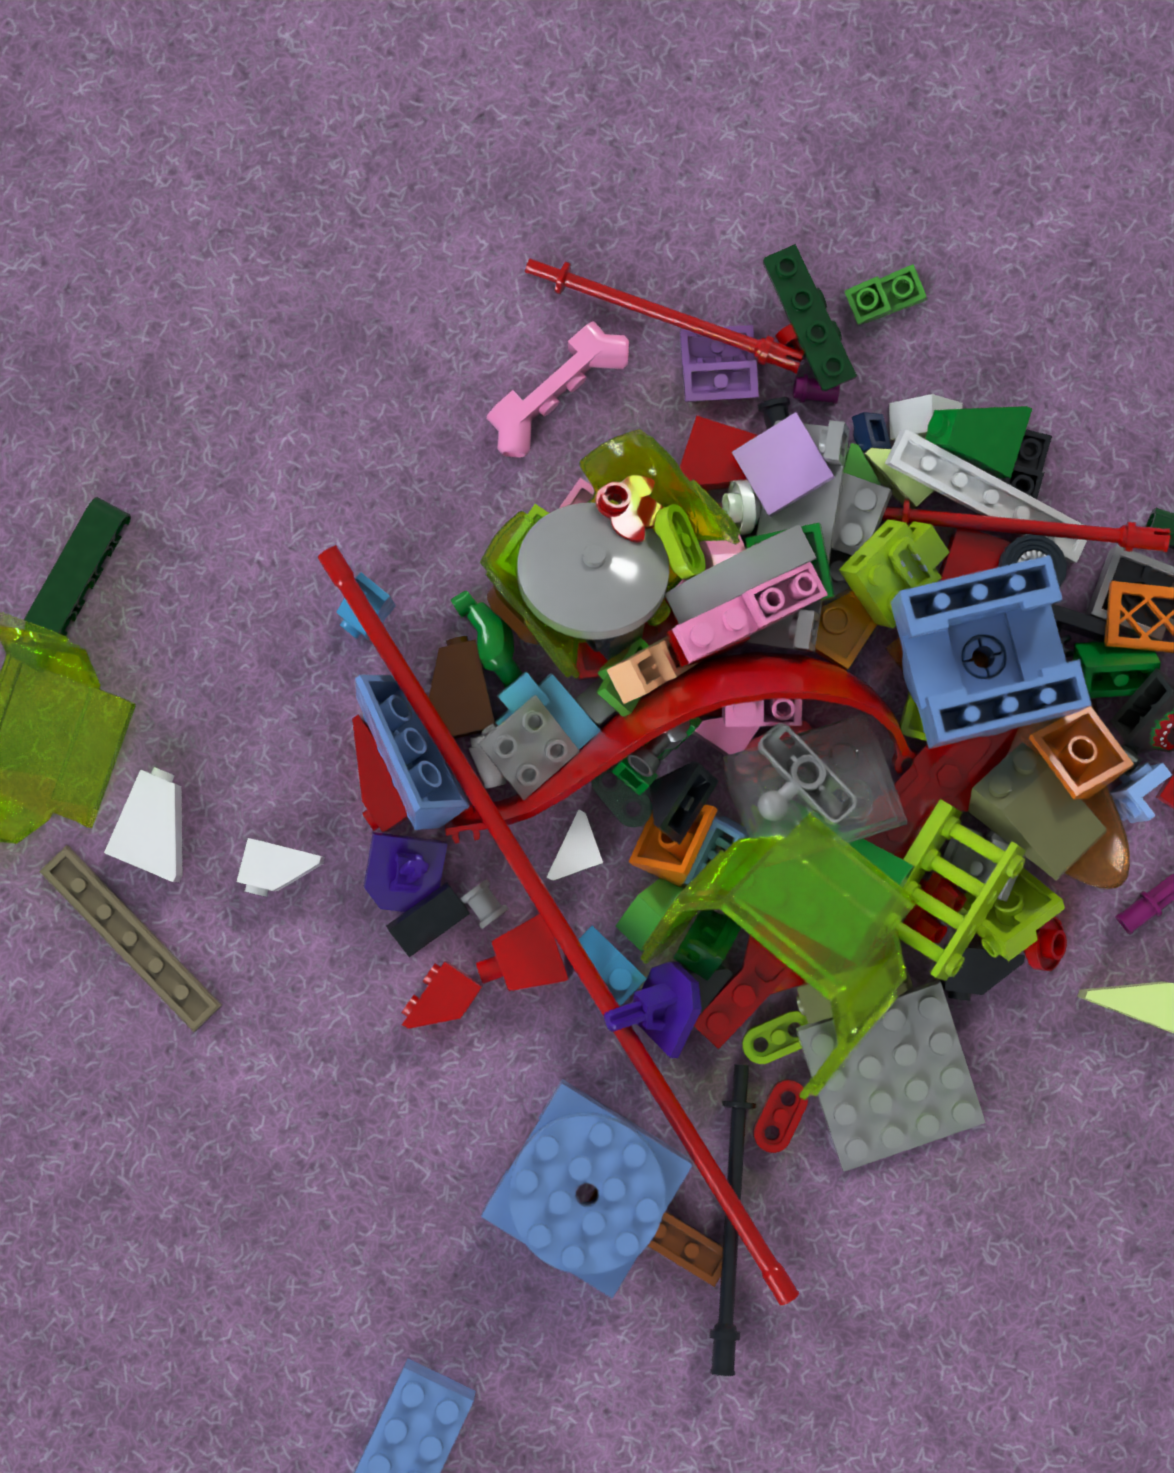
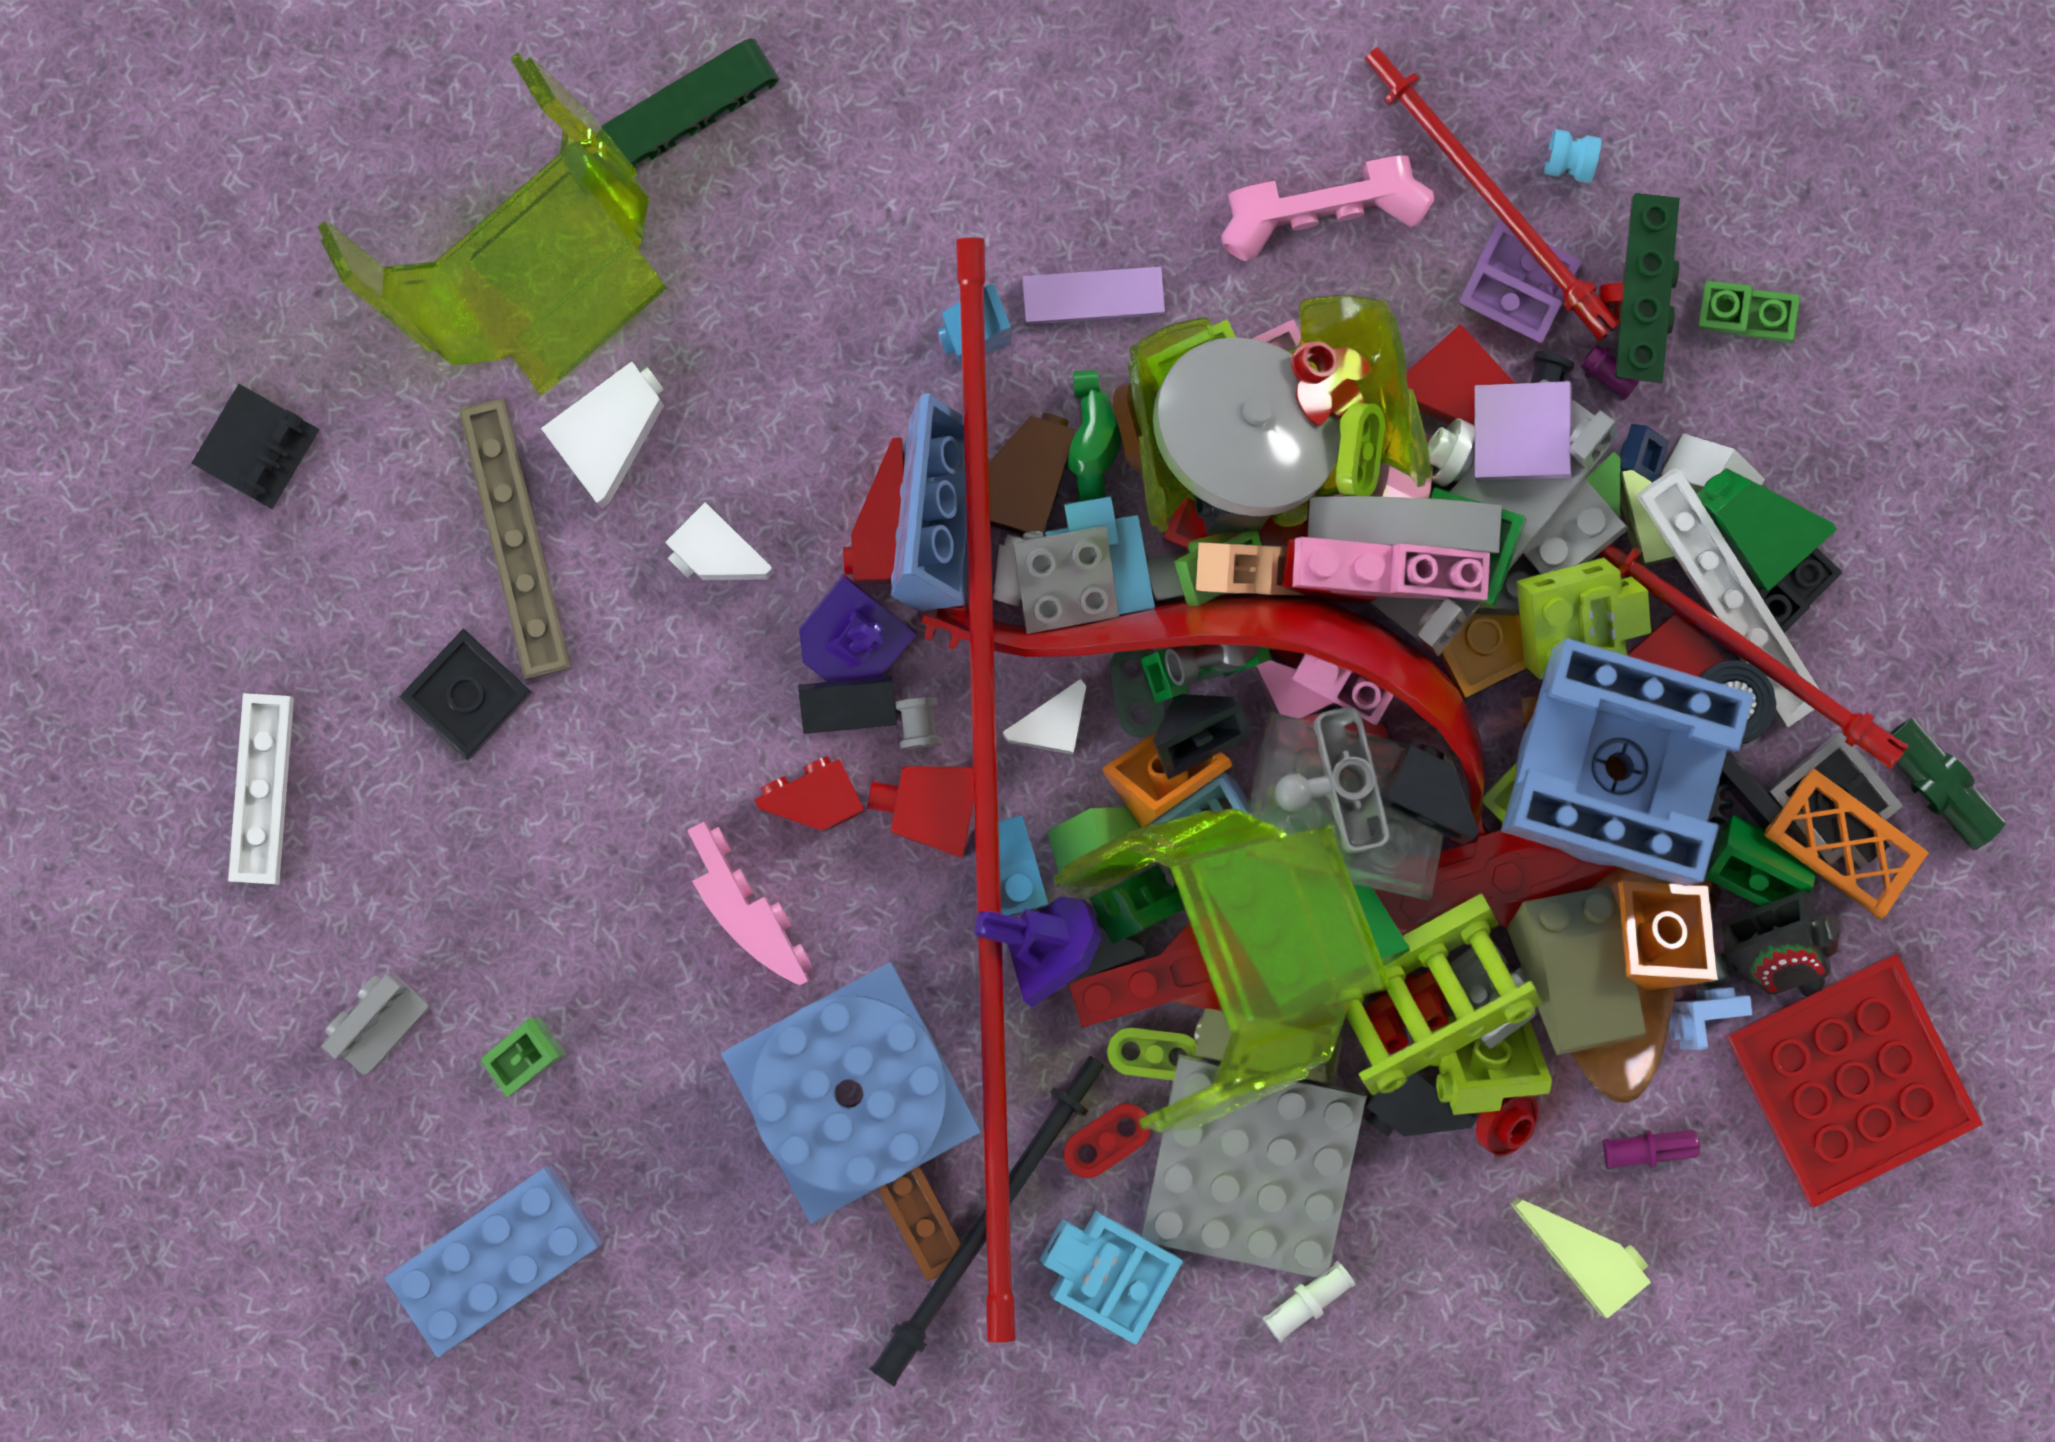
camera: 30 degrees right, 0 degrees up
(53, 1216) = (261, 789): none -> white plate
(159, 1066) = (465, 694): none -> black tile
(229, 1333) = (376, 1024): none -> light grey bracket
(344, 1294) = (523, 1056): none -> bright green slope
(433, 539) = (1093, 295): none -> lavender tile
(452, 1112) = (753, 926): none -> bright pink slope
(708, 256) = (1576, 156): none -> medium azure wheel
(835, 1207) = (1109, 1274): none -> medium azure piece
(865, 750) = (1430, 793): none -> black slope
(981, 1145) = (1308, 1301): none -> white pin

